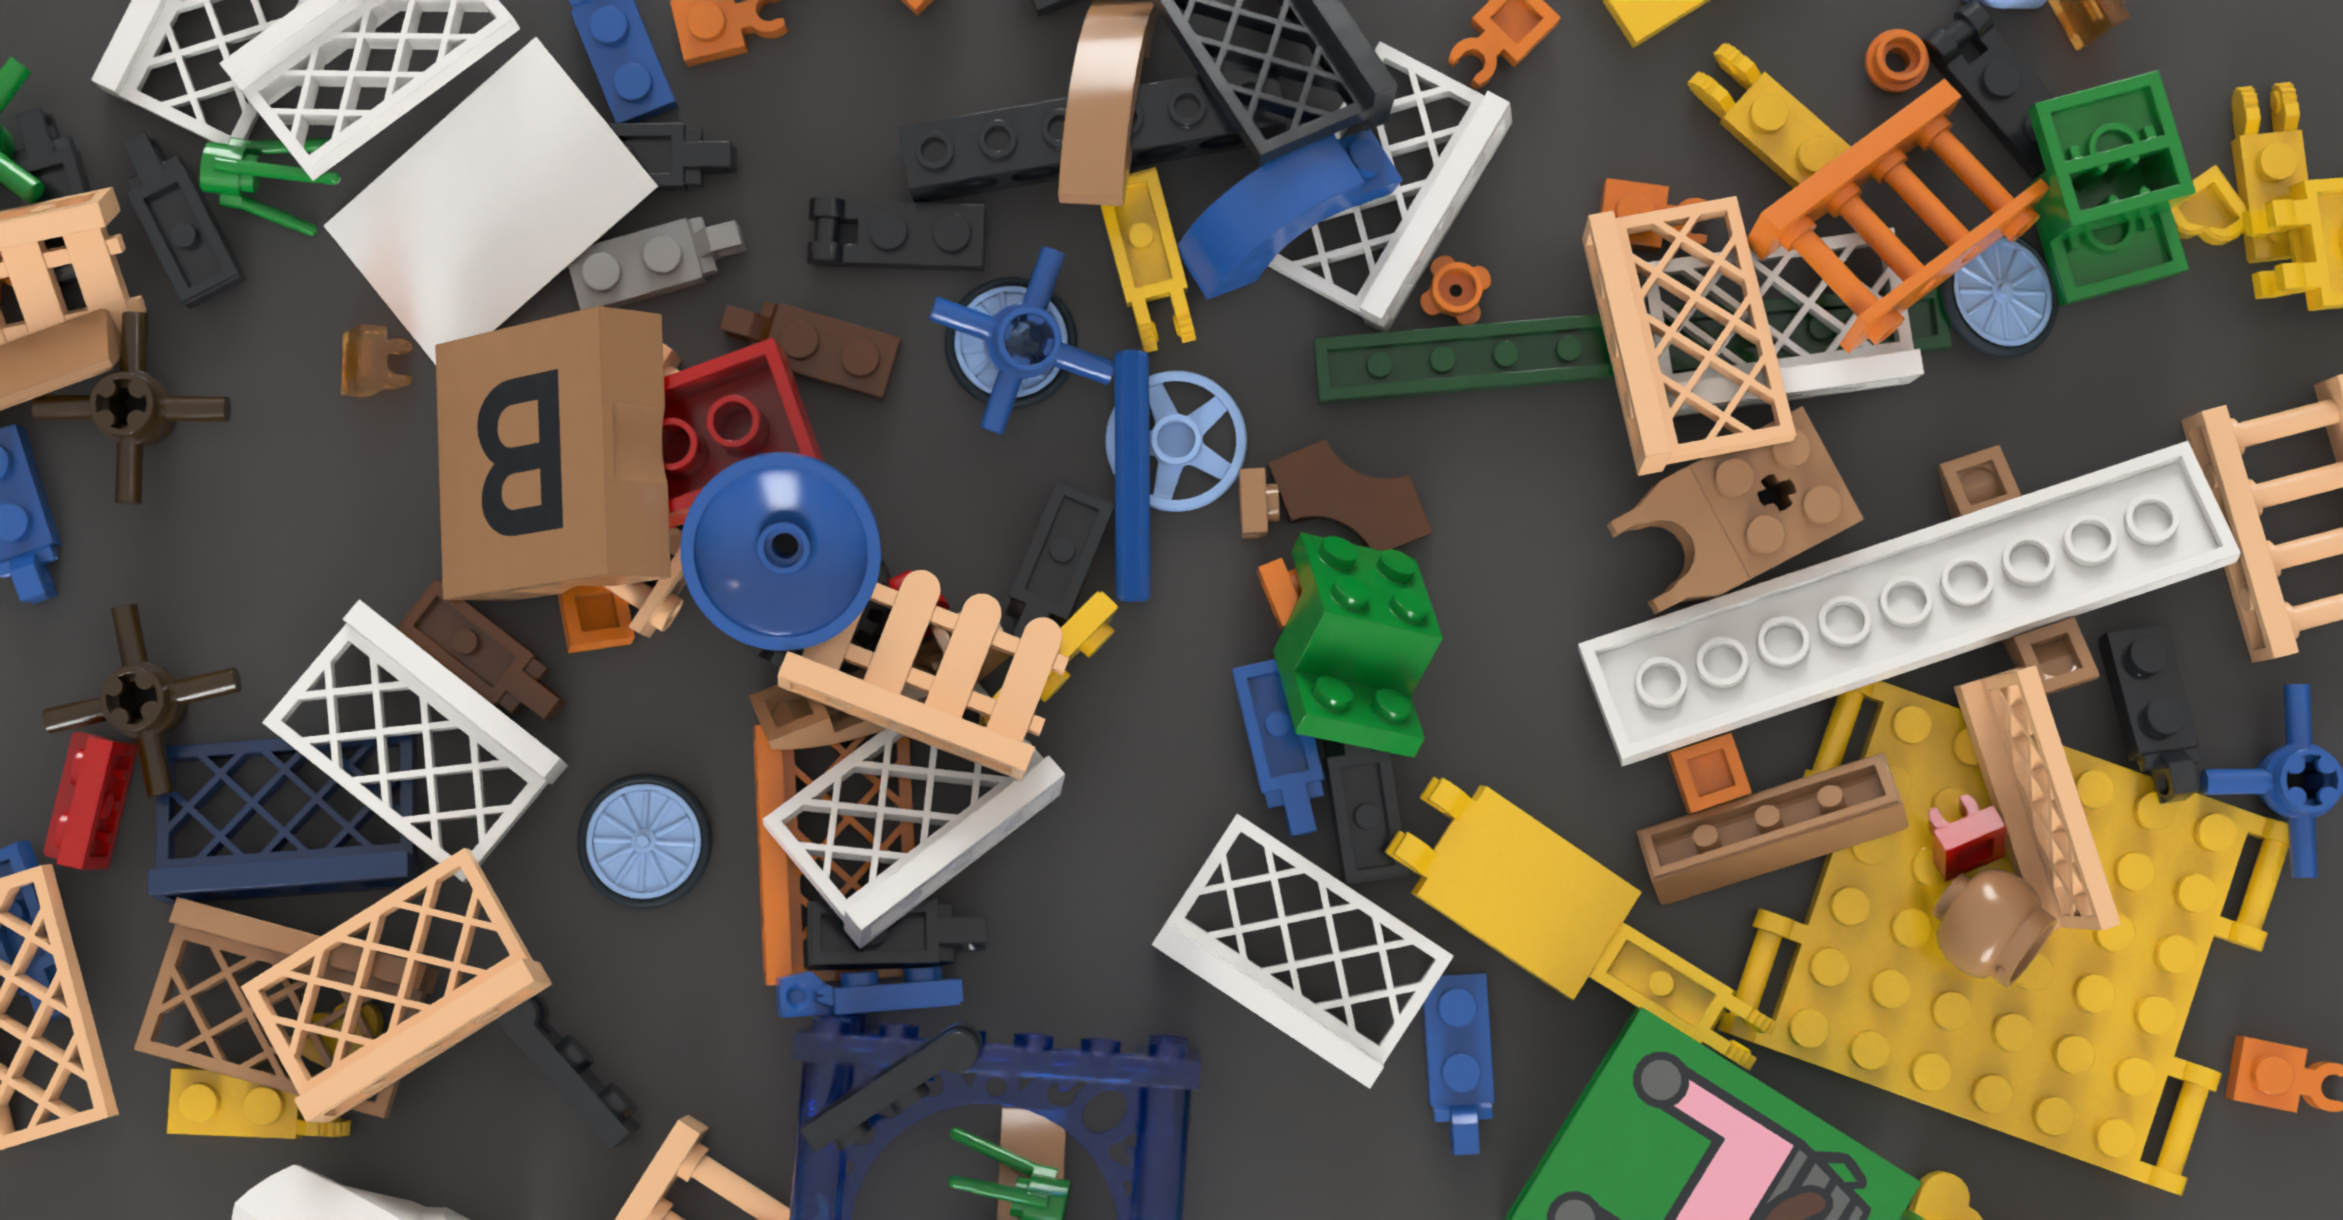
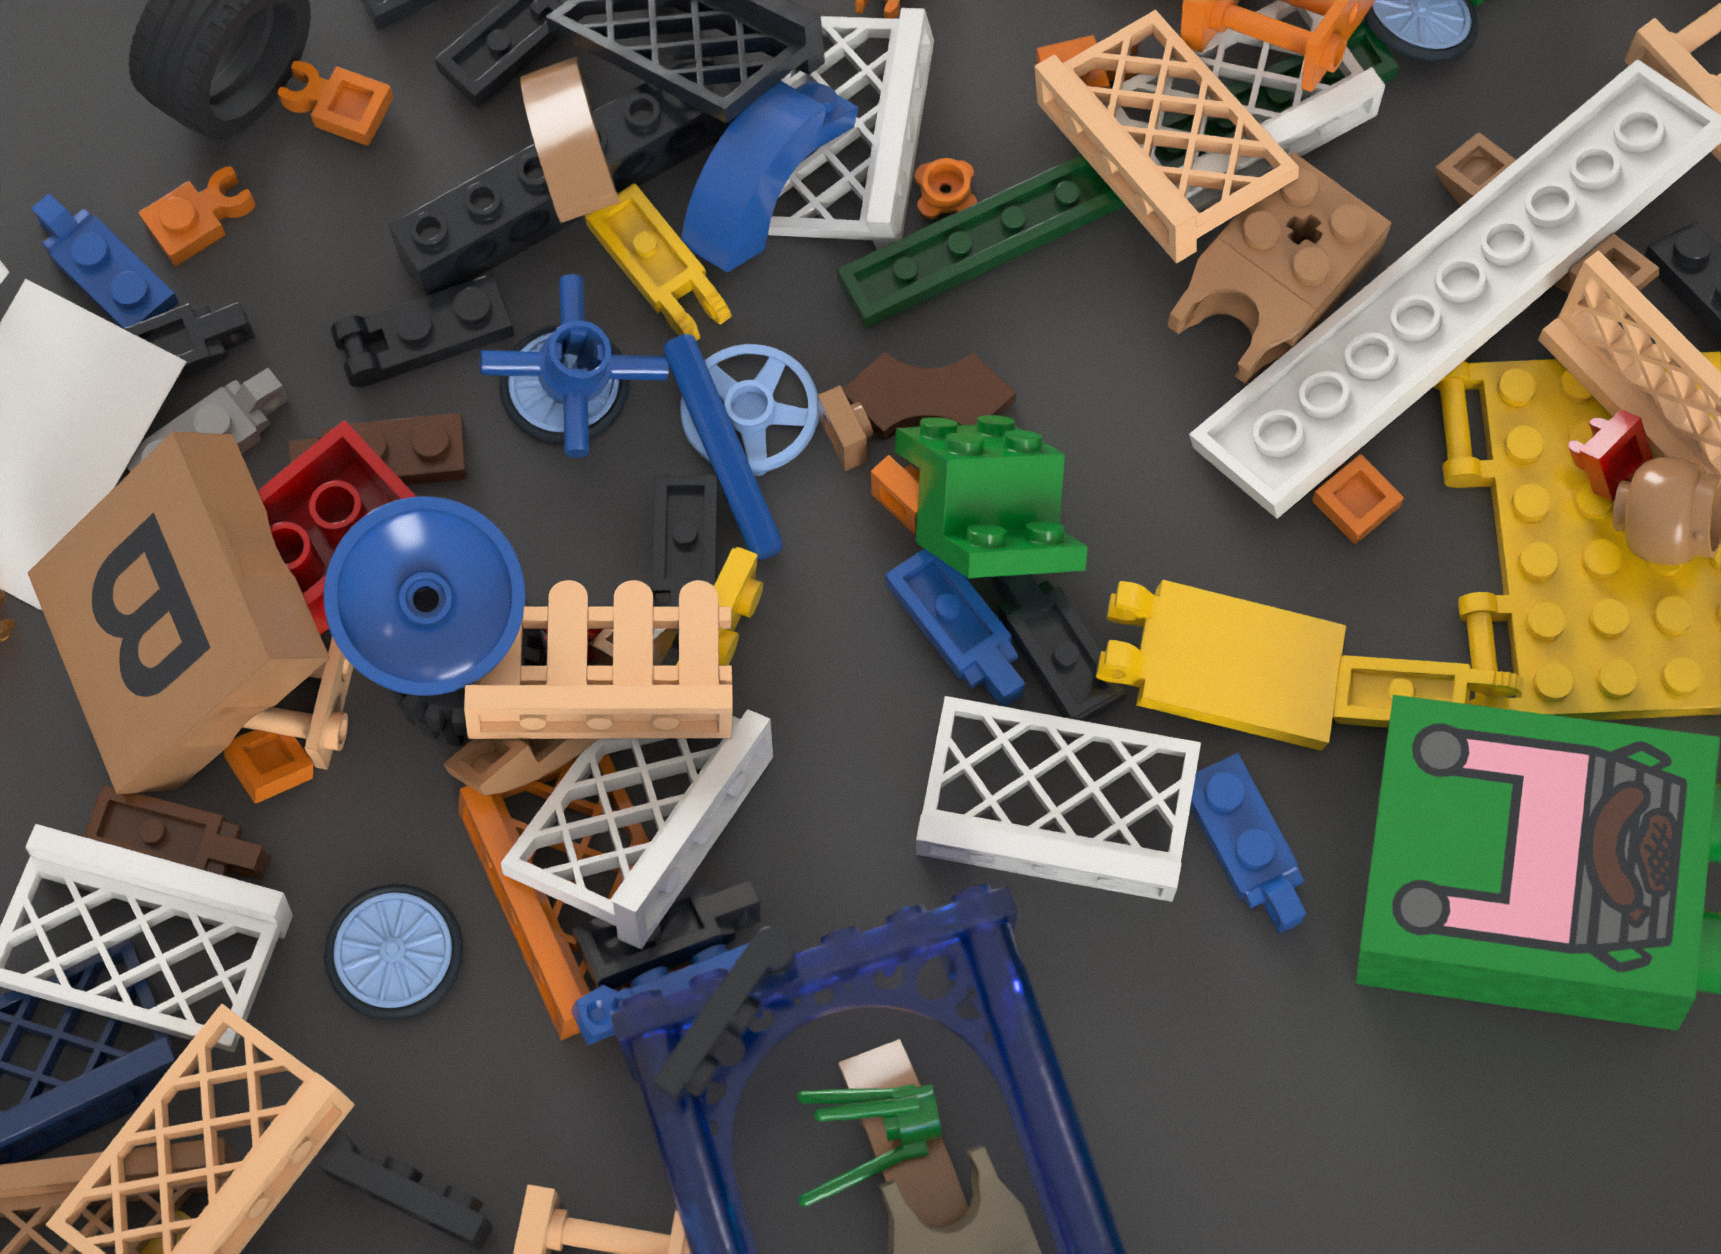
camera: 20 degrees left, 15 degrees down
(1772, 829) = (1438, 523): medium nougat slope -> none

